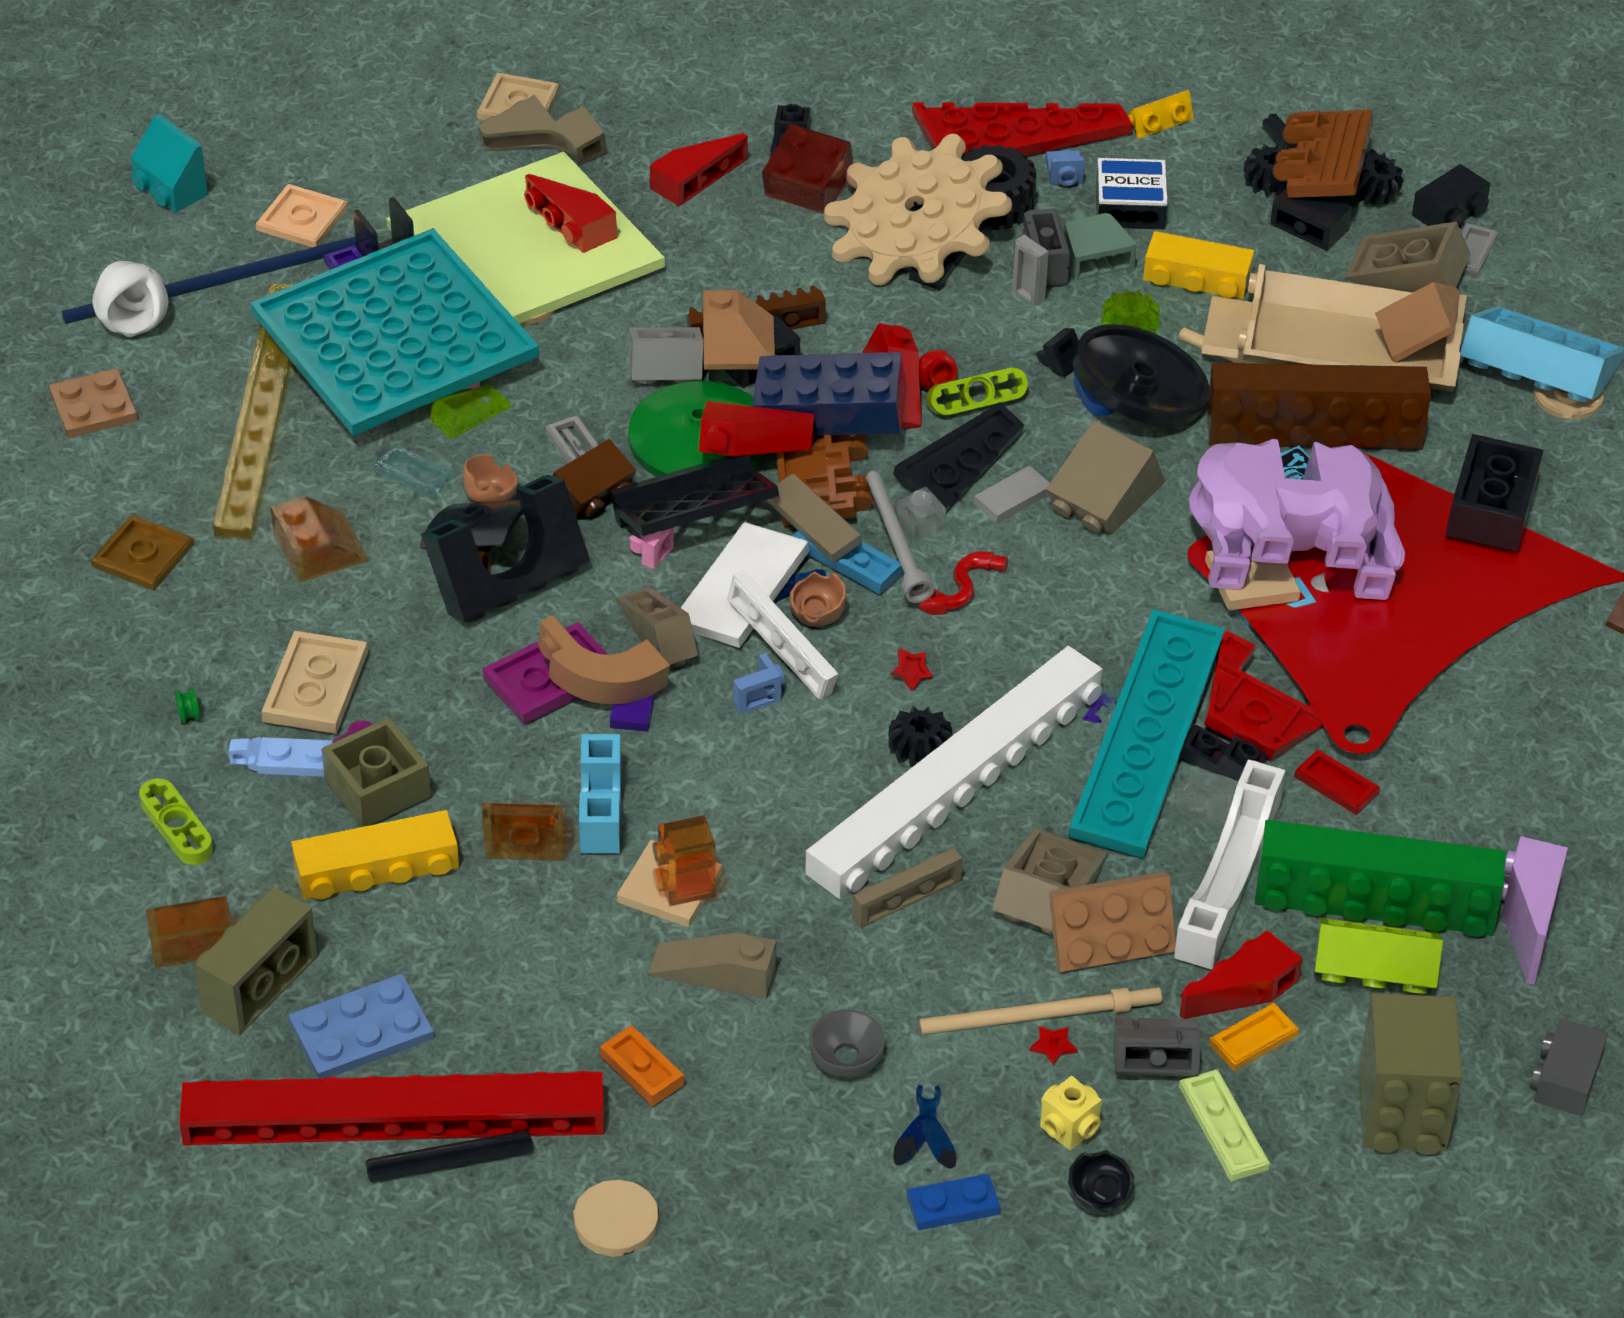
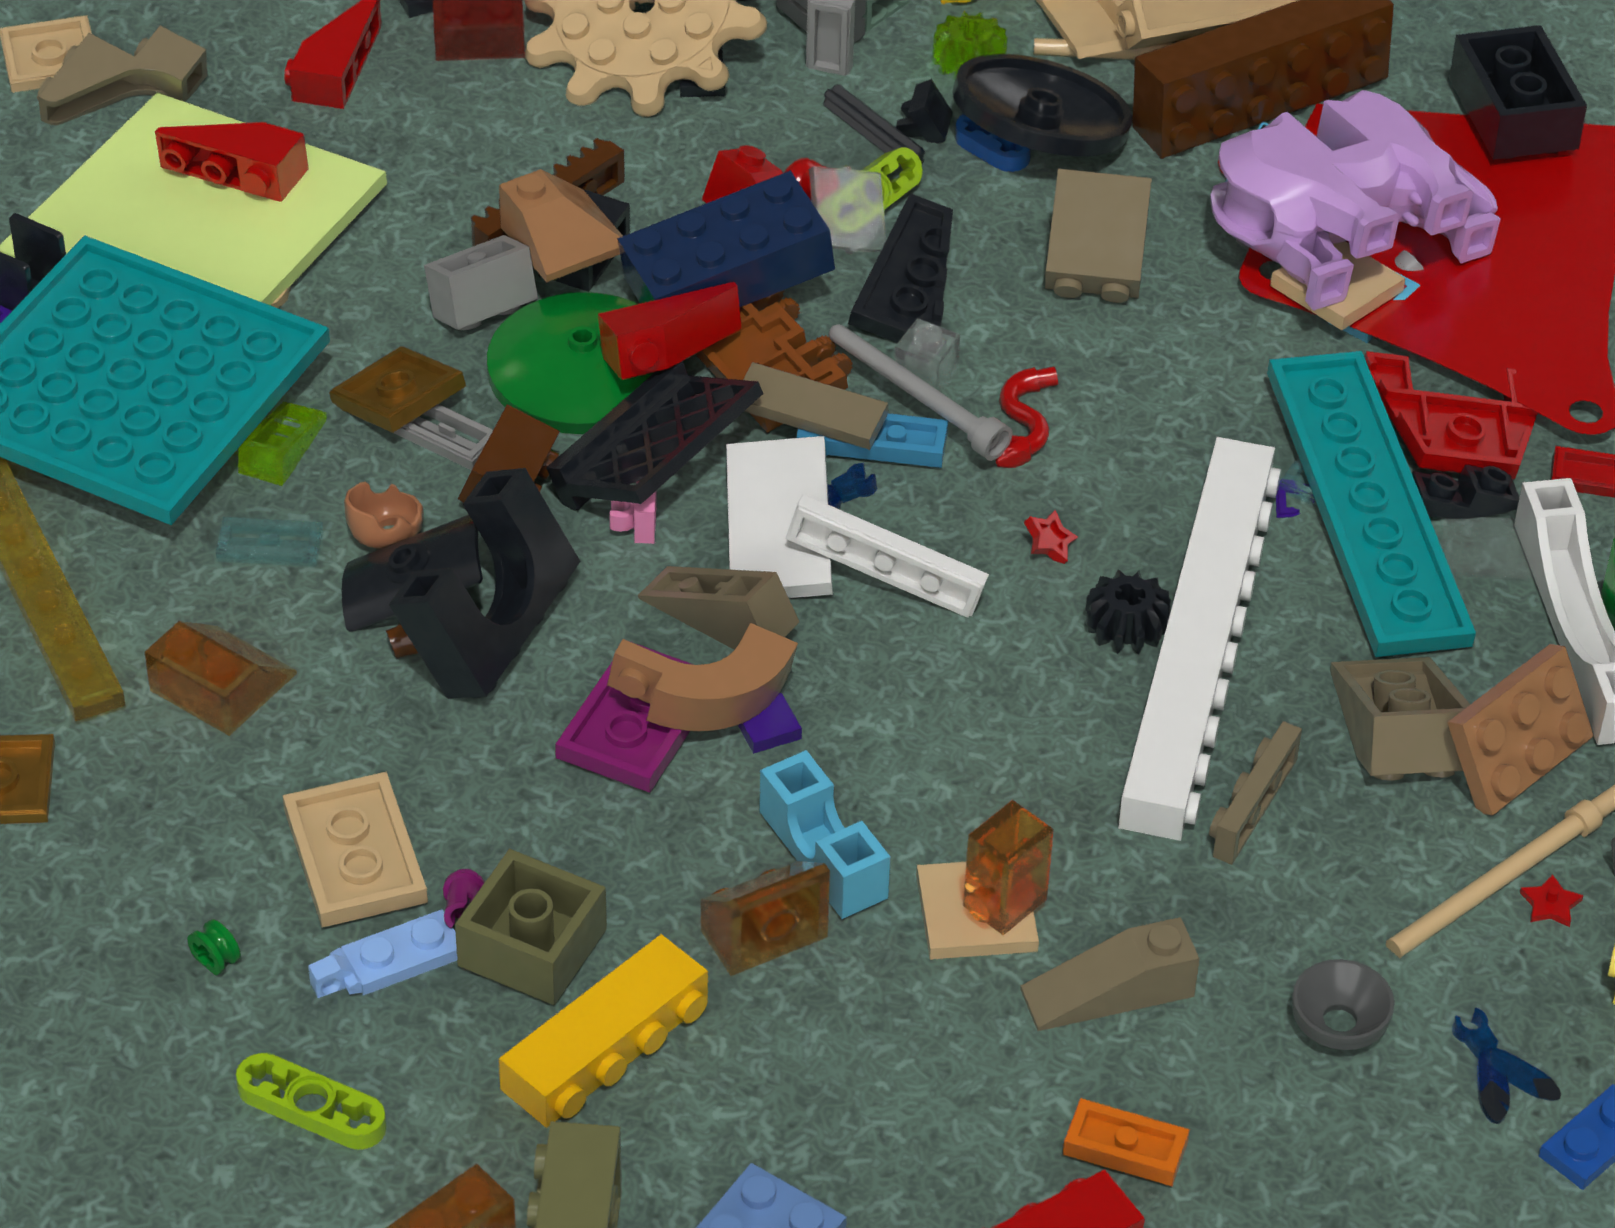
camera: 30 degrees left, 0 degrees up
(564, 404) = (397, 389): none -> pearl gold tile
(760, 687) = (900, 627): medium blue bracket -> none
(816, 595) = (889, 489): nougat hair -> none
(946, 395) = (850, 207): none -> clear piece
(1012, 494) = (997, 294): light grey tile -> none
(1021, 346) = (868, 122): none -> black axle

